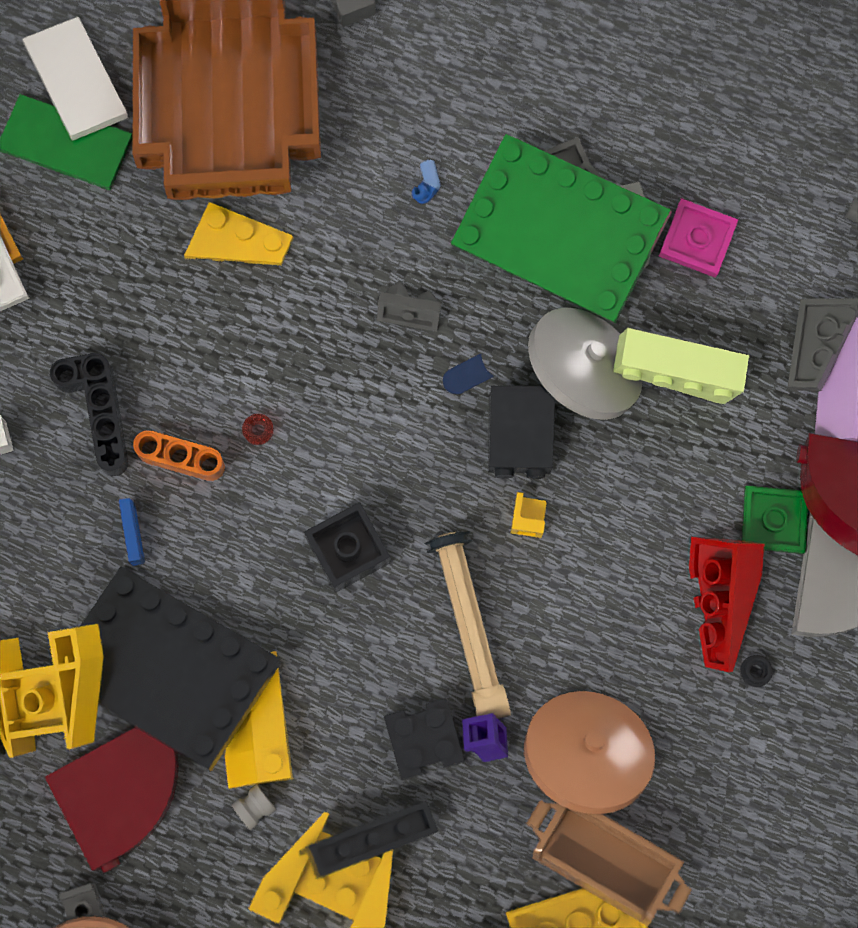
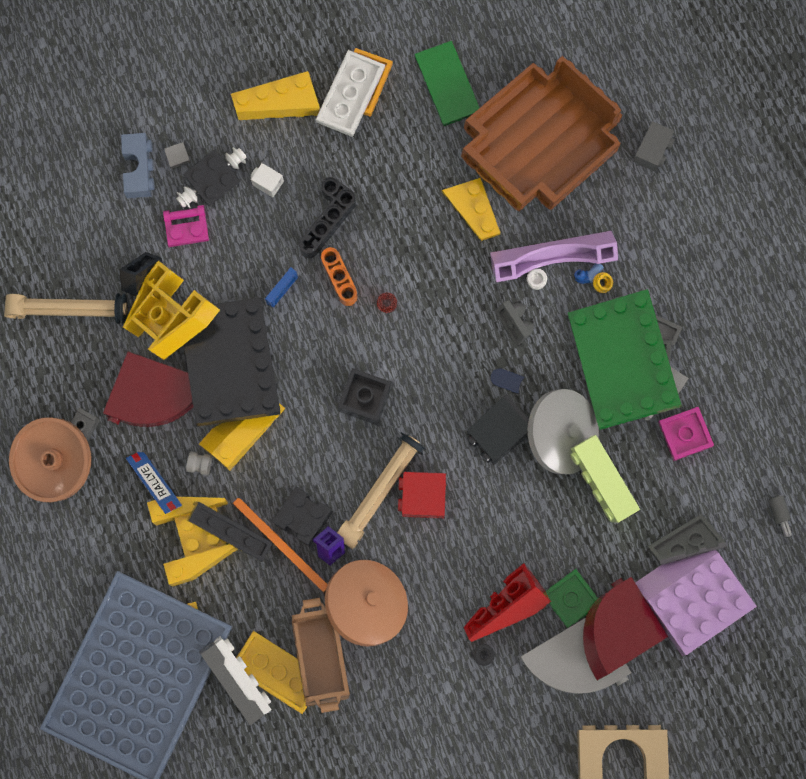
camera: 55 degrees right, 0 degrees up
(75, 78) = (483, 59): white tile -> none
(230, 880) = (154, 482): none -> sticker
(344, 245) = (589, 248): none -> lavender arch
(381, 243) = (536, 279): none -> white tile
(435, 793) = (281, 545): none -> orange tile
(456, 171) = (606, 278): none -> yellow plate
(518, 580) = (422, 495): none -> red brick
(528, 516) = (461, 472): yellow panel -> none

